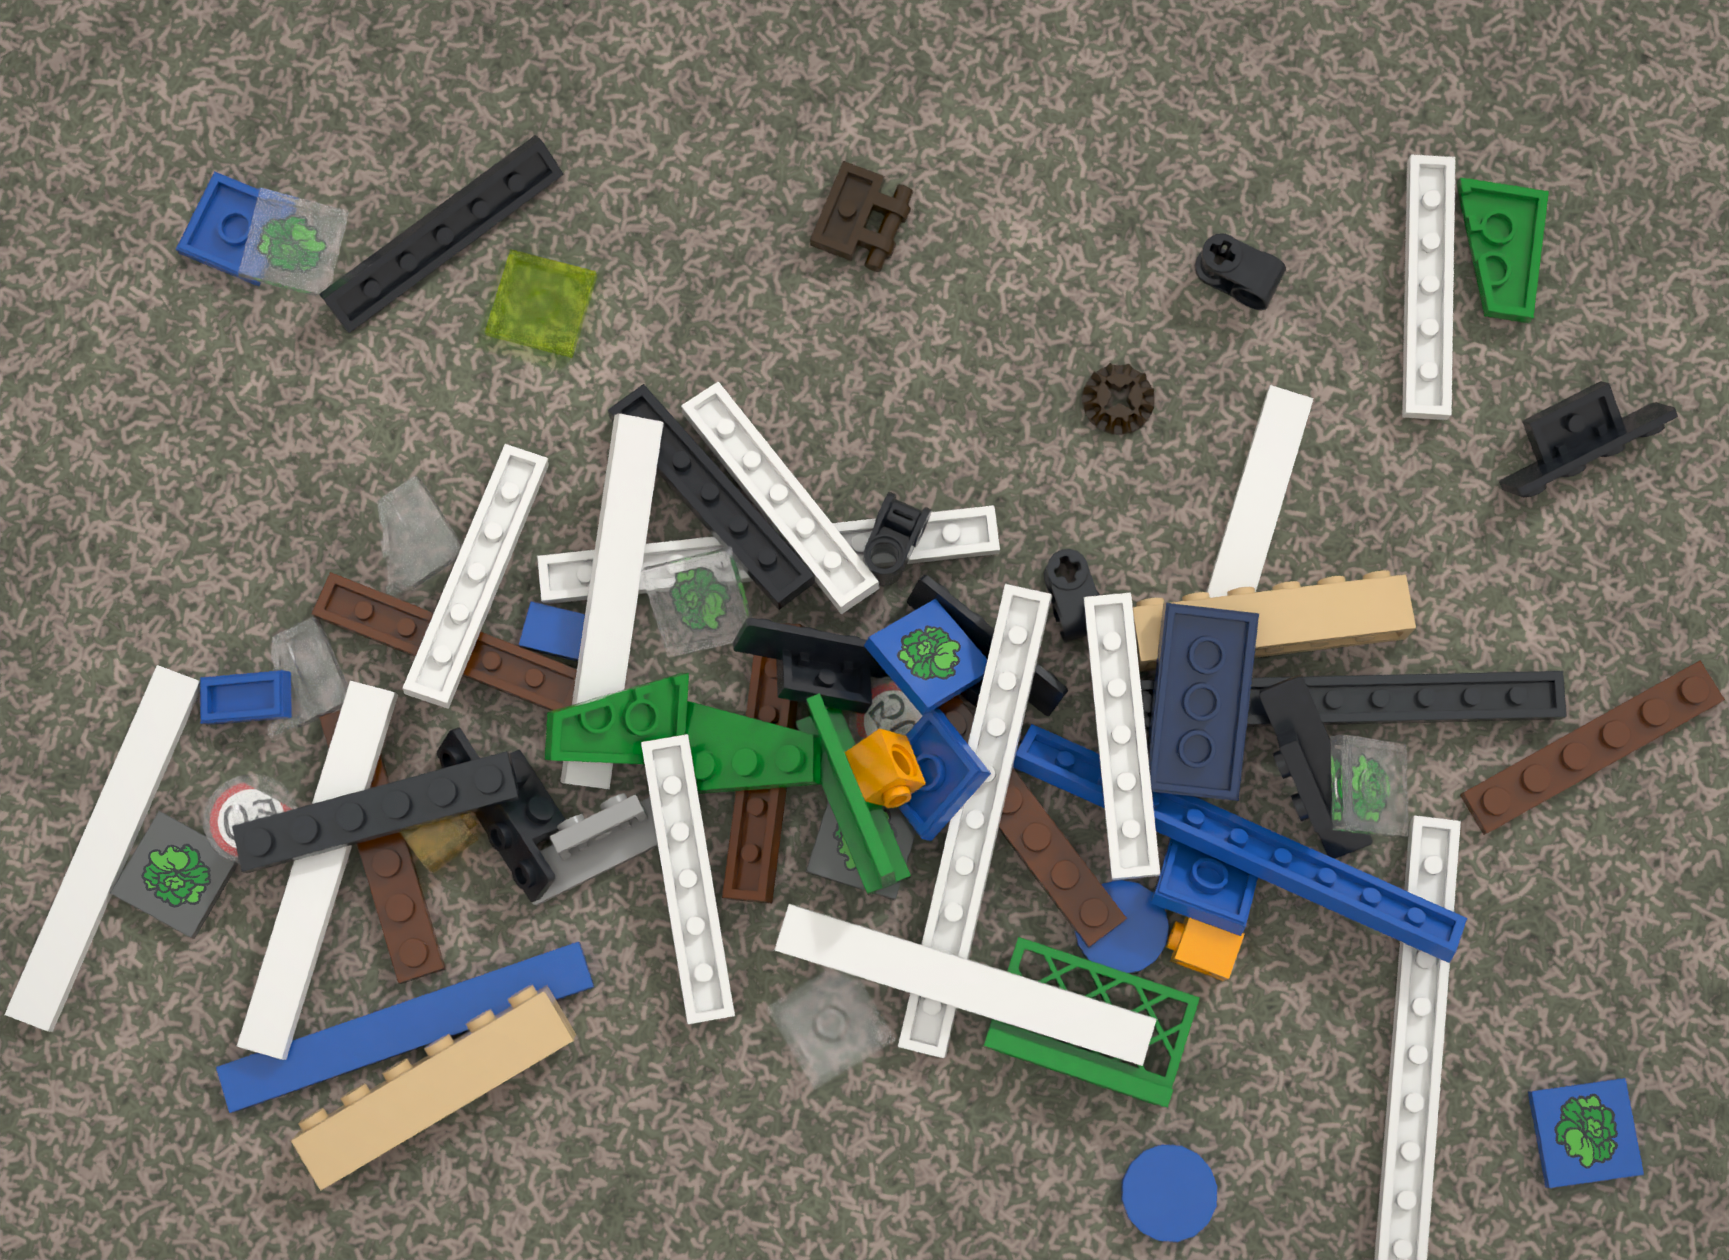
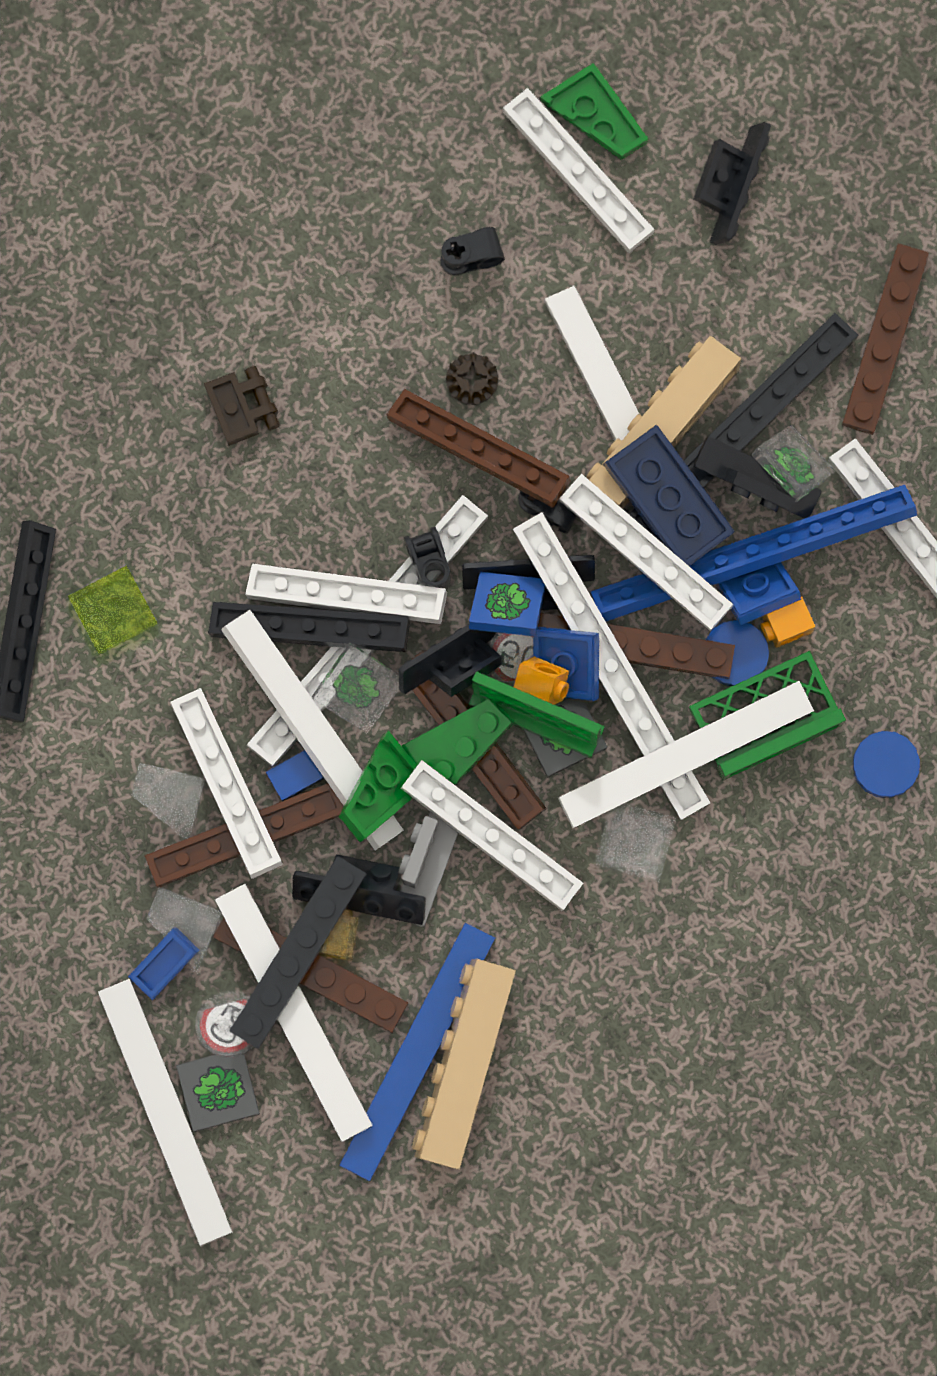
camera: 45 degrees left, 0 degrees up
(1054, 474) = (479, 448): none -> reddish brown plate

